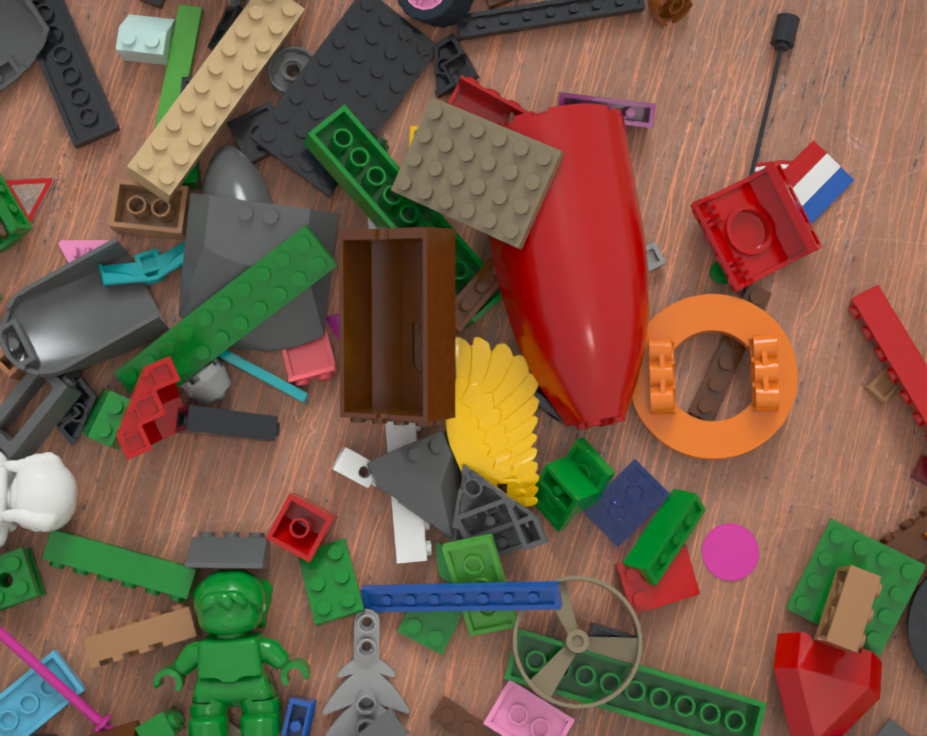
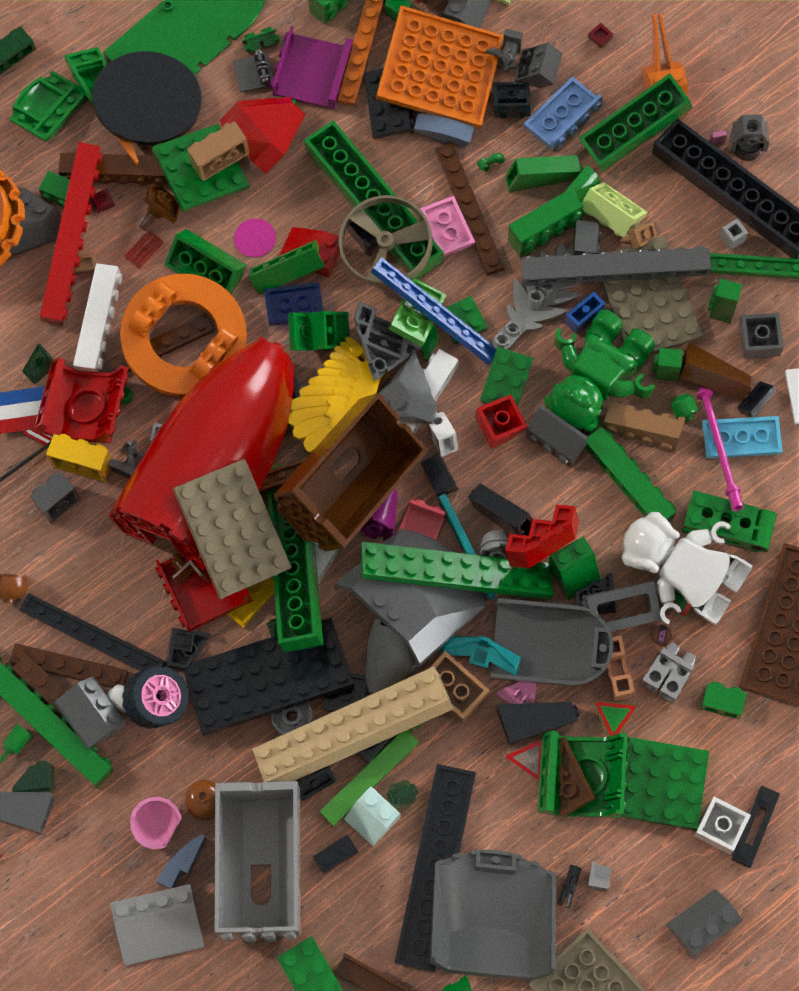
camera: 140 degrees left, 10 degrees down
(49, 238) = (533, 719): none -> black slope
(115, 691) = (684, 406): none -> green head
(132, 76) = (402, 794): none -> clear green head
(325, 422) = (439, 475): none -> black hinge
(633, 112) = (111, 542): magenta brick -> none
(653, 208) = (127, 468): none -> dark grey piece
(699, 110) = (54, 497): none -> dark grey brick
(708, 168) = (79, 457): none -> yellow brick
(758, 478) = (199, 257): none -> green slope
(818, 332) = (97, 318): none -> white brick
(827, 448) = (128, 256): none -> clear red tile
(835, 240) = (38, 364): none -> clear green slope
(860, 508) = (160, 204): none -> reddish brown piece

